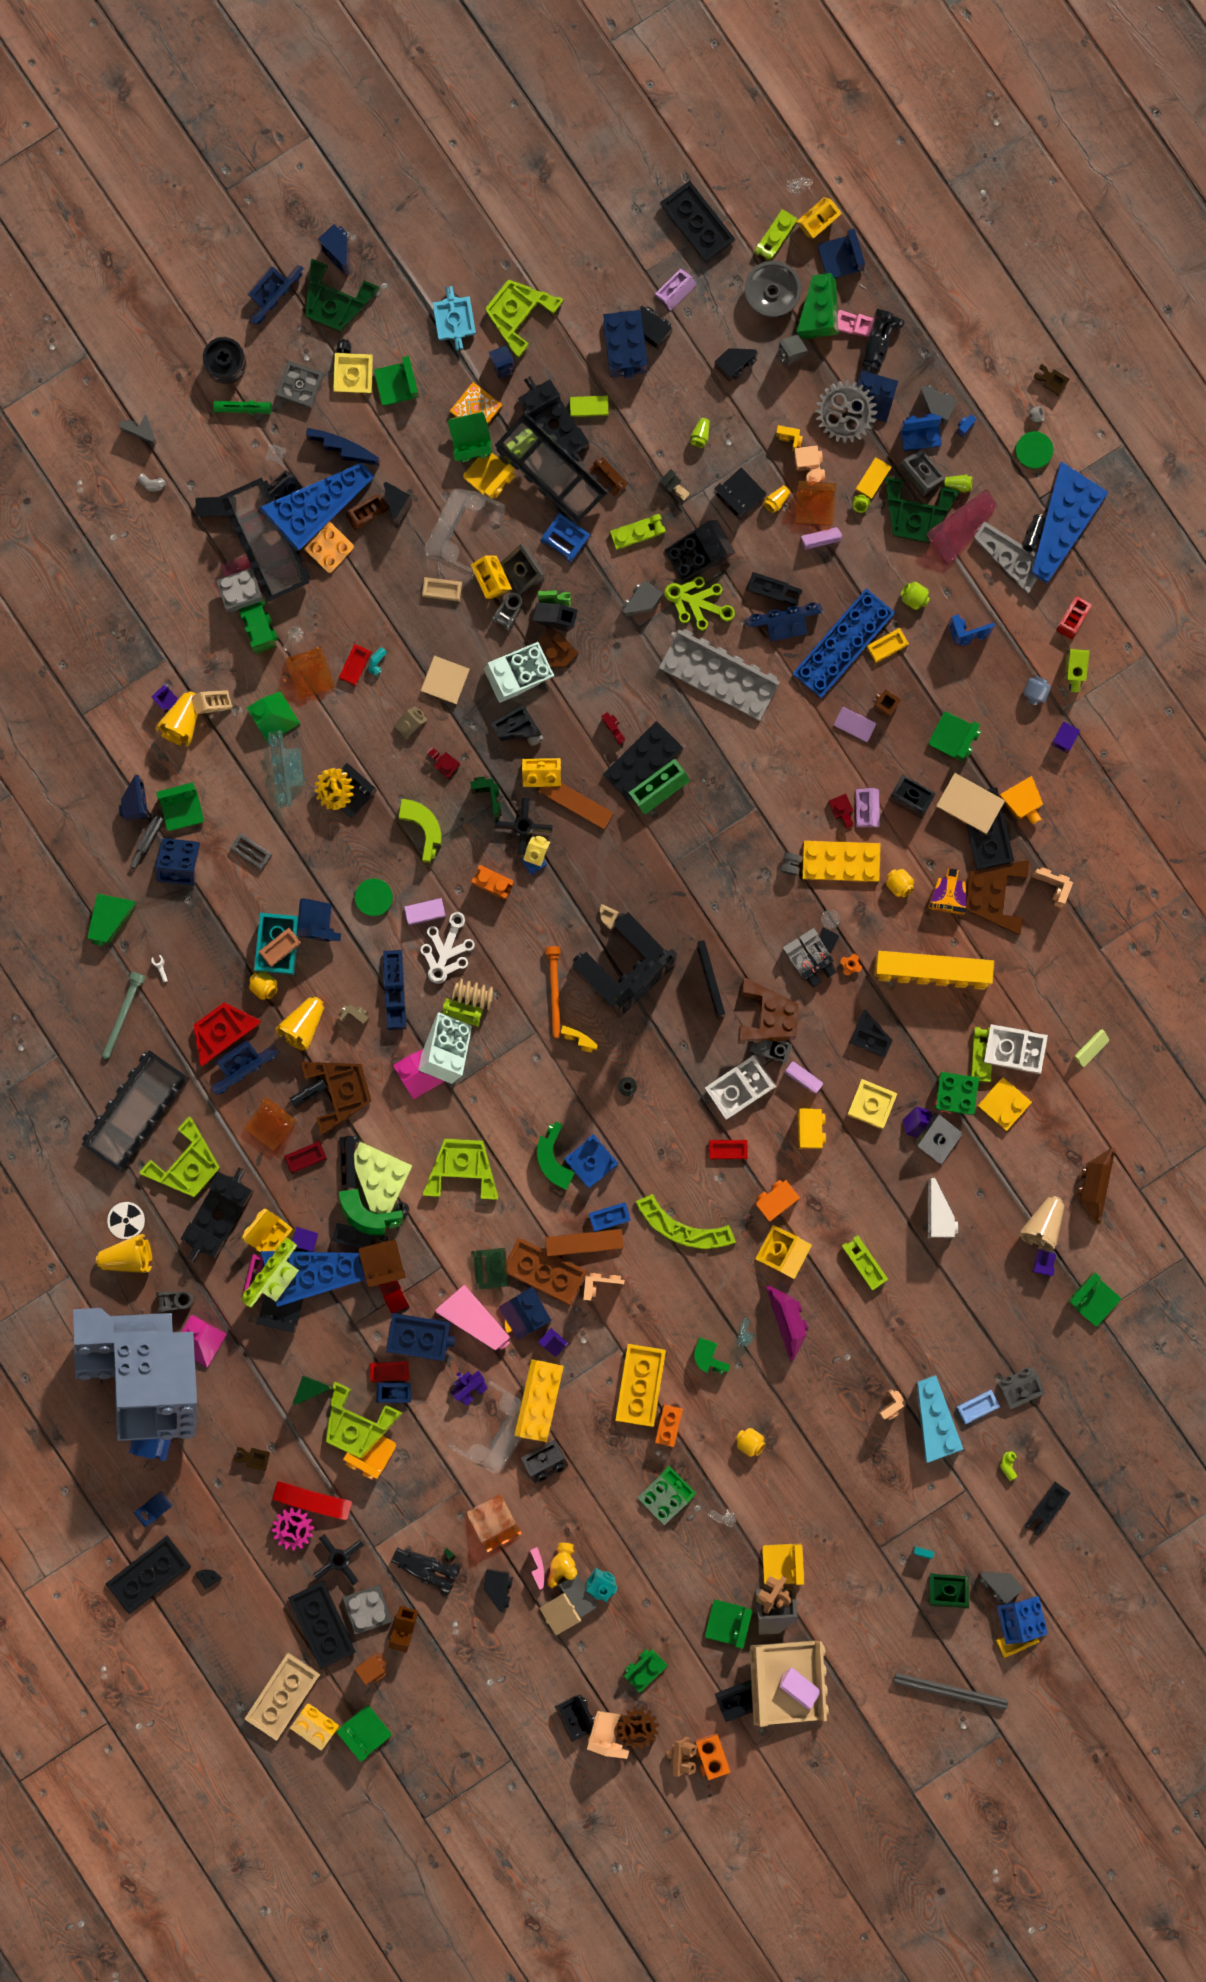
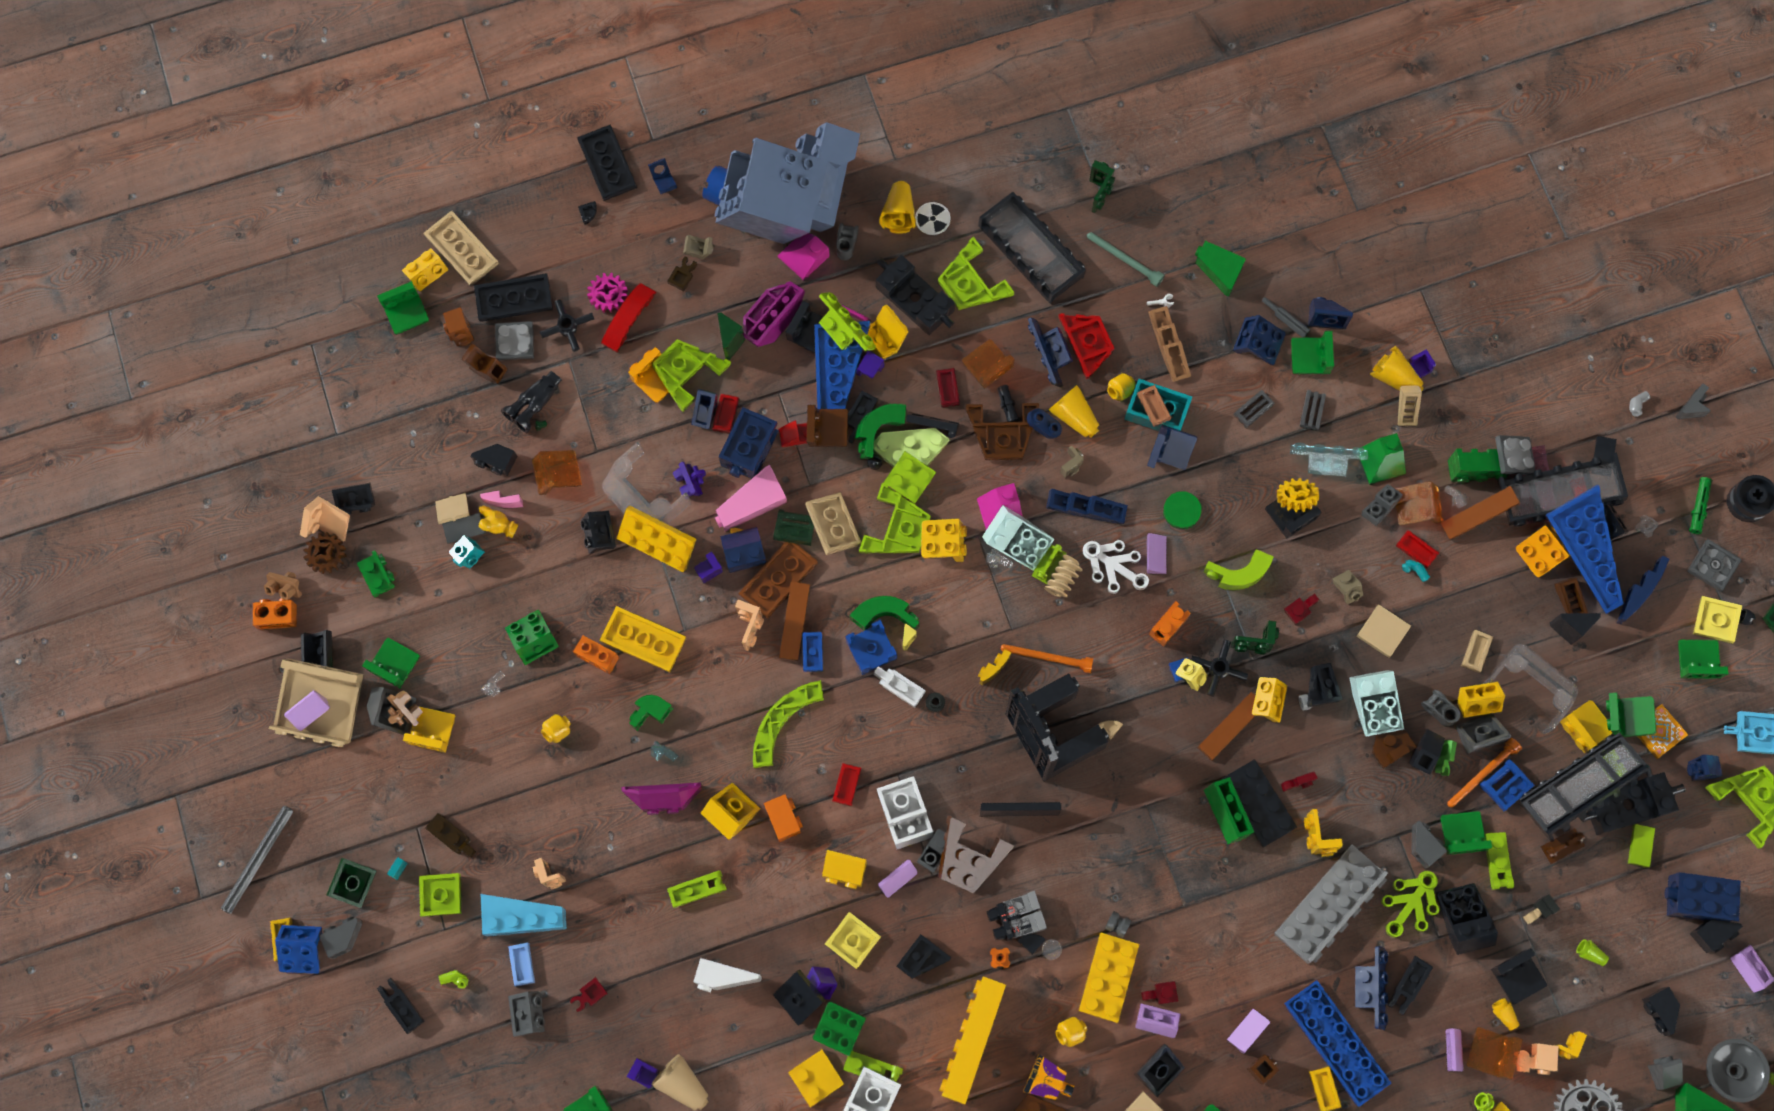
camera: 105 degrees right, 10 degrees down
(42, 1054) = (1104, 177): none -> dark green bracket
(204, 949) = (1169, 344): none -> medium nougat slope
(219, 1450) = (698, 247): none -> dark tan bracket
(238, 801) = (1315, 395): none -> flat silver tile
(275, 1353) = (772, 313): none -> magenta wedge
(307, 612) = (1480, 513): none -> dark orange tile
(319, 707) = (1384, 502): none -> dark grey slope
(321, 1050) = (1045, 424): none -> dark blue plate
(410, 1169) = (909, 477): none -> lime plate
(466, 1120) = (943, 539): none -> yellow bracket
(471, 1065) = (994, 559): none -> clear plate
(476, 1232) = (833, 523): none -> tan tile
(529, 541) = (1511, 747): none -> orange piece
(570, 1128) = (909, 636): none -> light yellow slope
(621, 567) = (1464, 833): none -> green bracket
(621, 1123) = (900, 686): none -> white hinge
(666, 702) = (1314, 842): none -> yellow bracket
(878, 1512) = (450, 835): none -> dark brown hinge
(936, 1503) = (440, 894): none -> lime plate
(987, 1332) = (591, 994): none -> dark red plate

